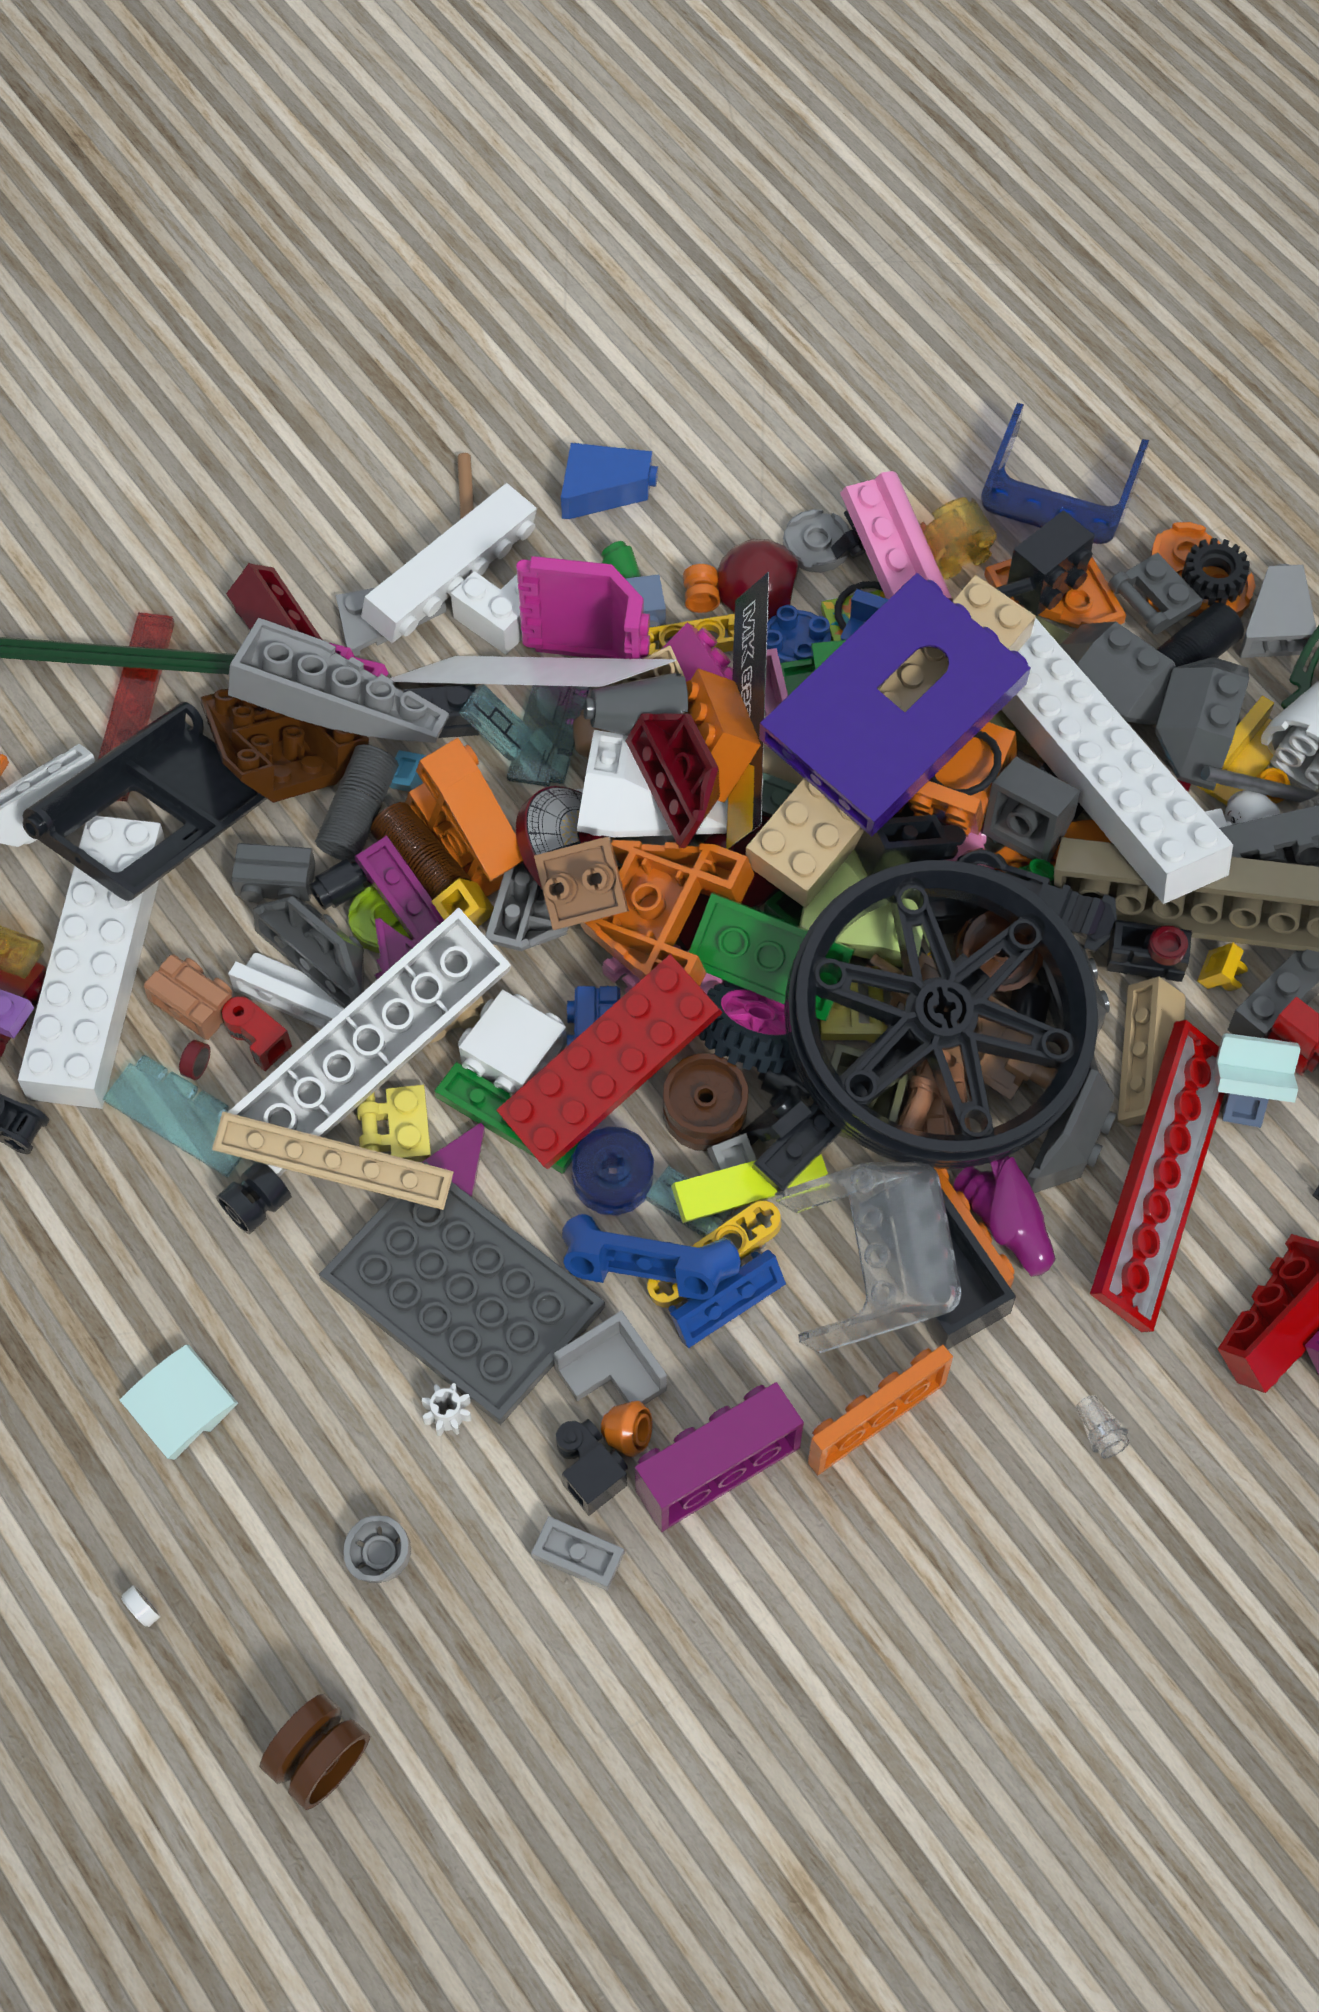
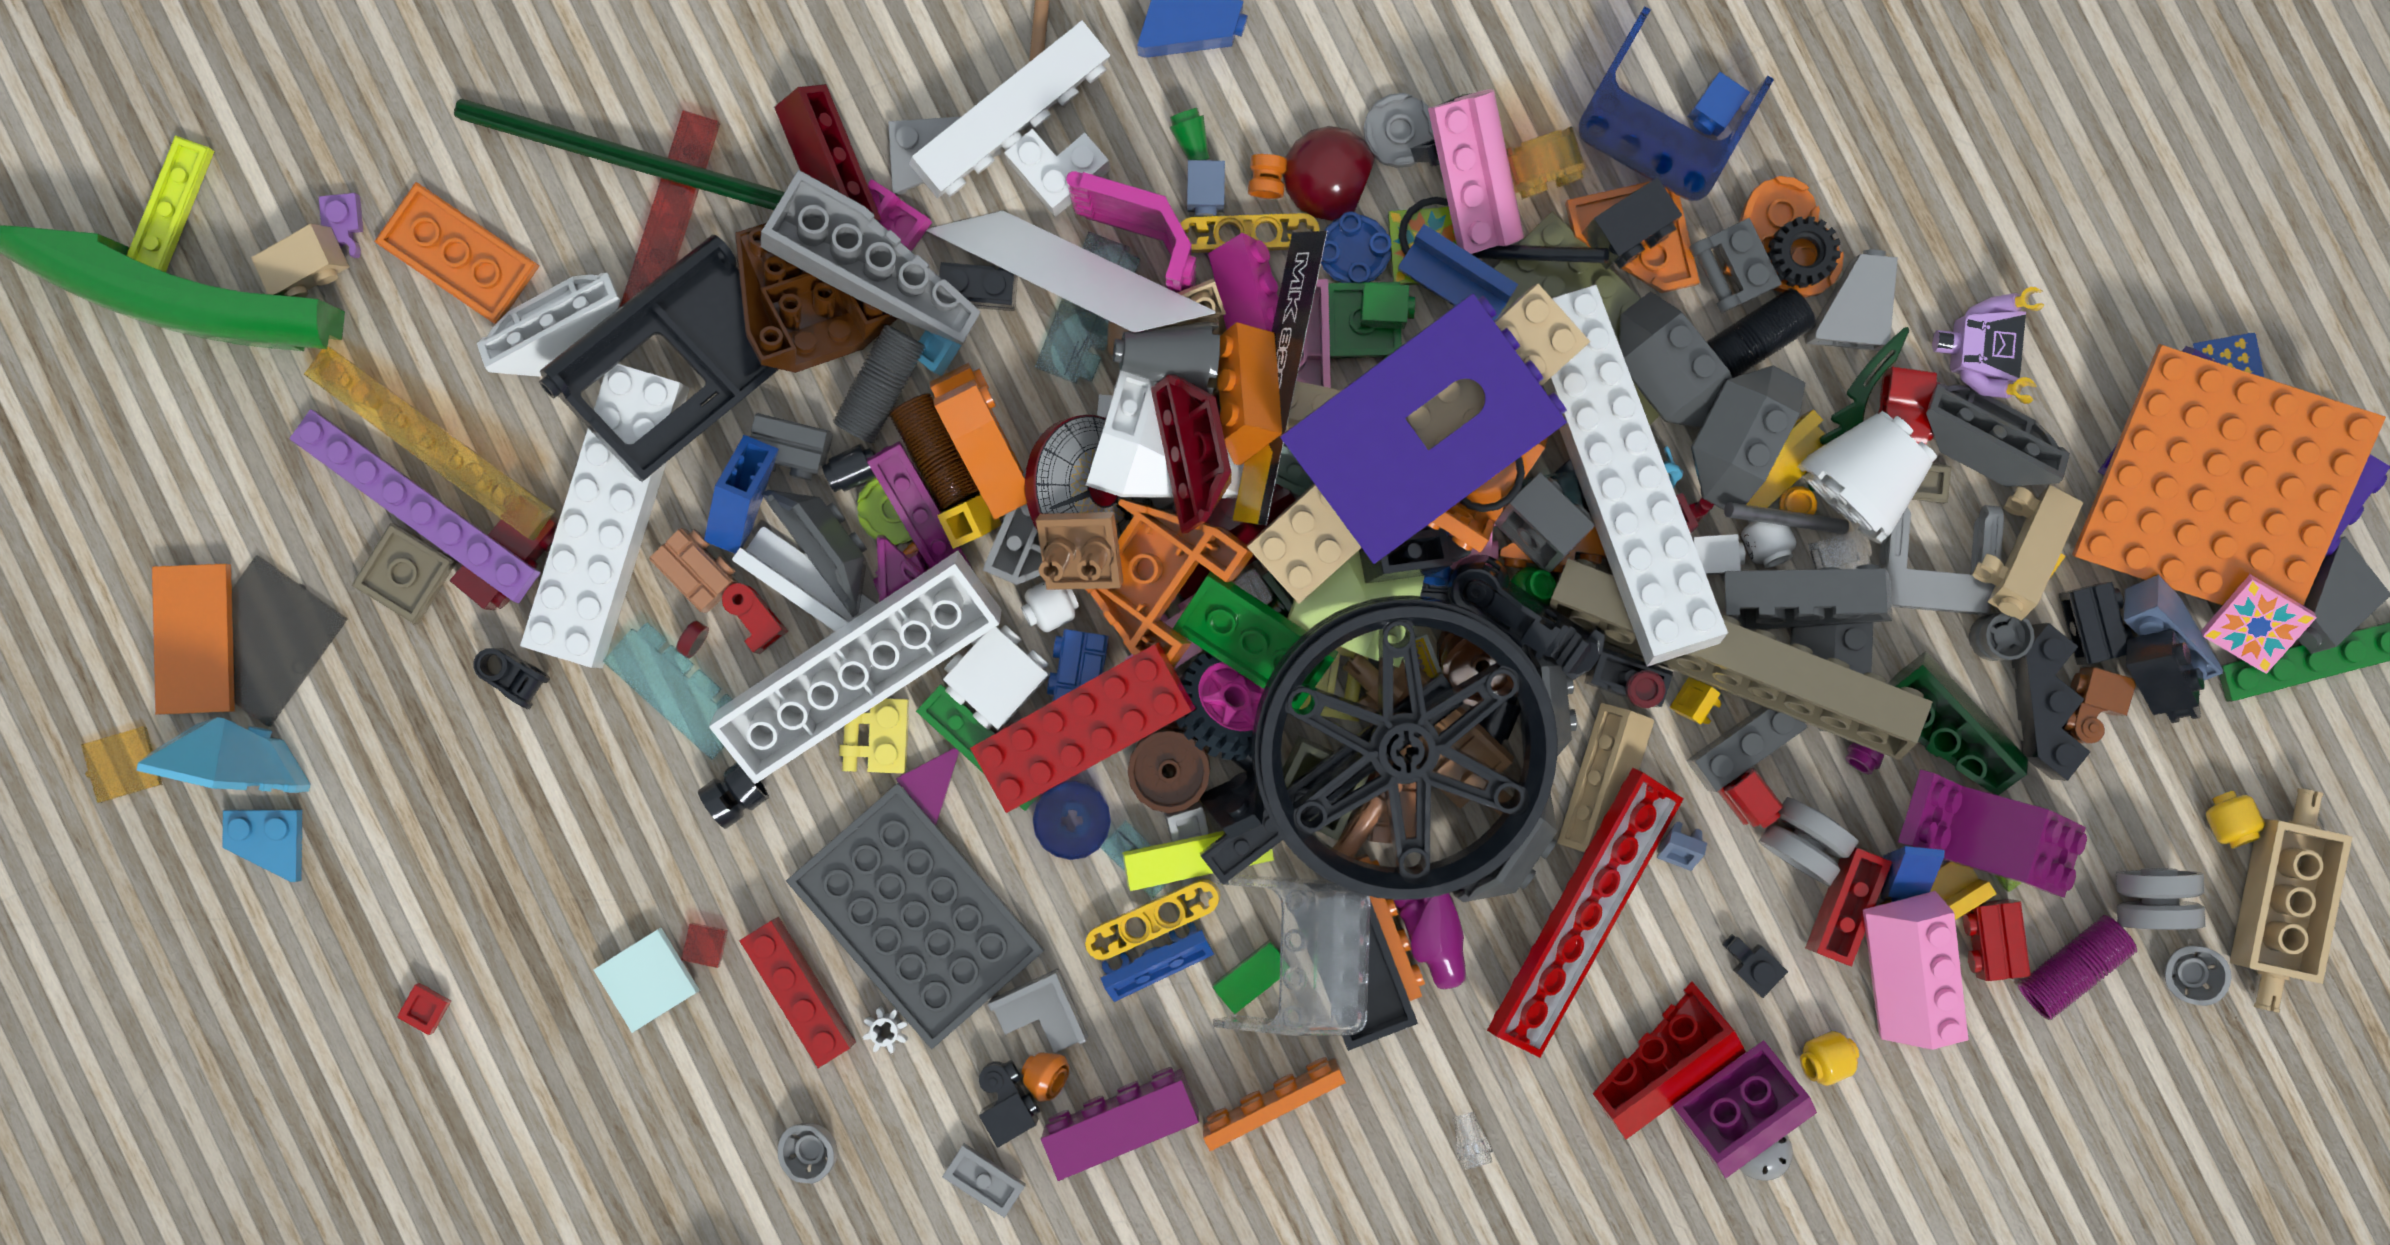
camera: 10 degrees right, 25 degrees up
(140, 1606) = (596, 1165): white tile -> none
(229, 914) = (739, 494): none -> blue slope
(238, 1358) = (704, 945): none -> clear red tile
(332, 1160) = (807, 782): tan tile -> none
(346, 1383) = (798, 992): none -> red brick
(496, 722) = (1030, 315): clear light blue tile -> none
(556, 973) = (1049, 607): none -> white head
(693, 1269) = (1128, 949): blue plate -> none
(829, 1296) = (1249, 977): none -> green slope
(1104, 477) = (1718, 105): none -> blue brick
(1257, 1067) = (1698, 830): light aqua panel -> none

